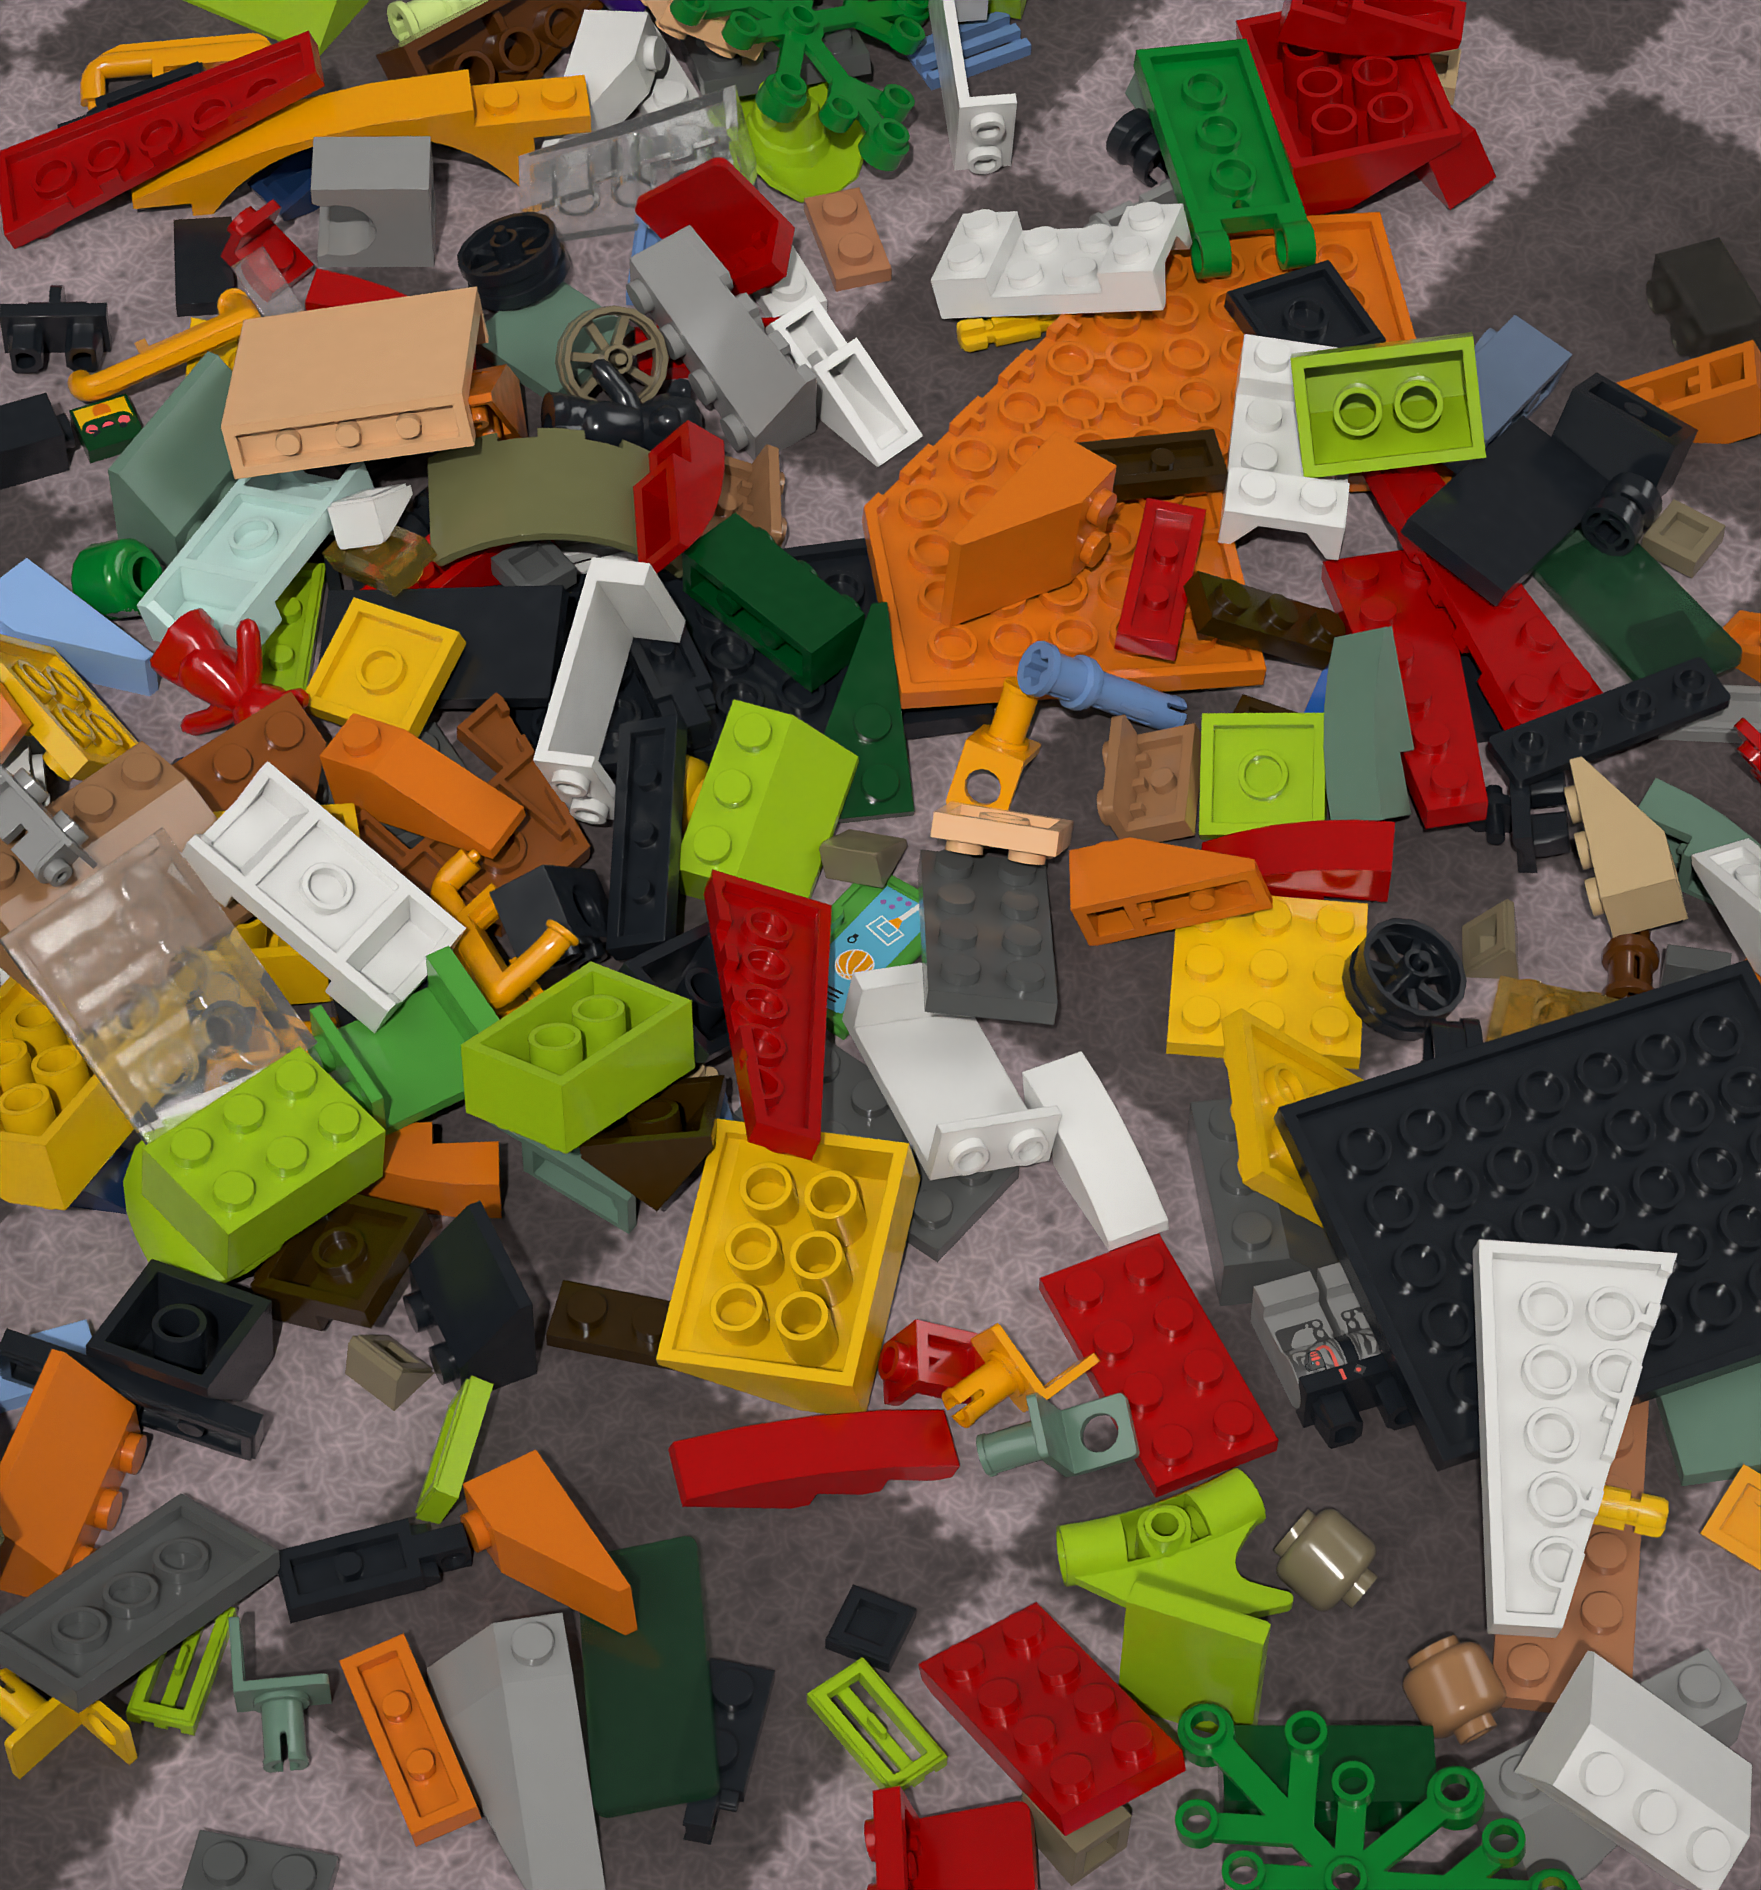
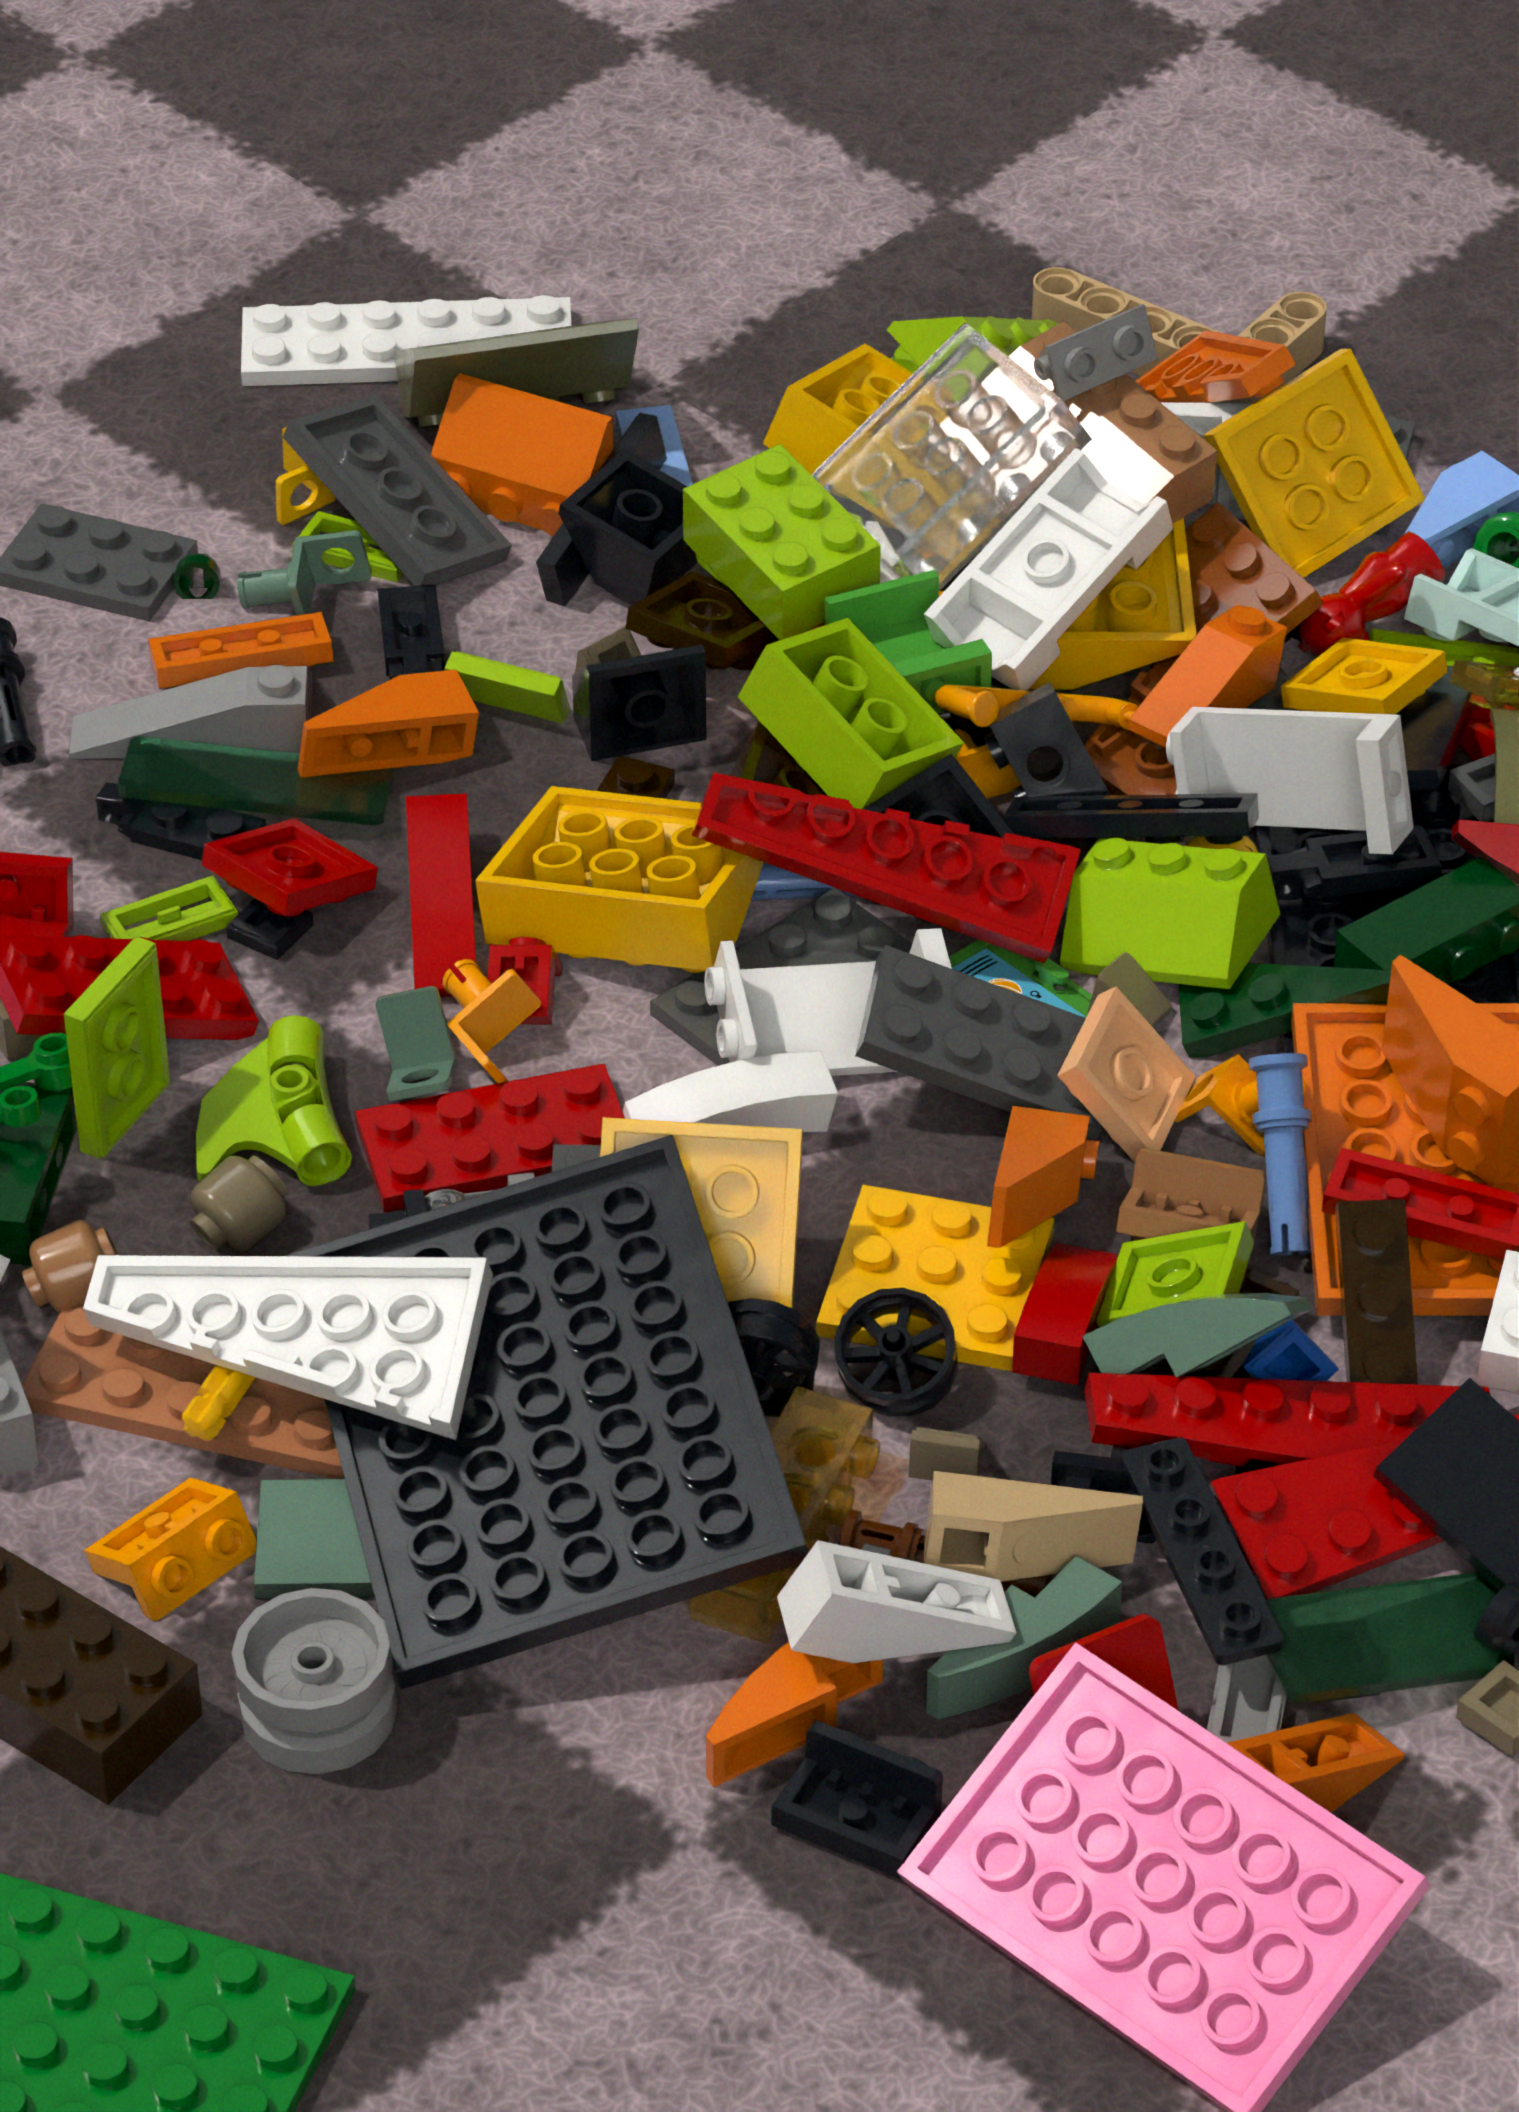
camera: 100 degrees right, 10 degrees down
(263, 1815) = (184, 576): none -> dark green hinge
(803, 1604) = (289, 867): none -> red plate

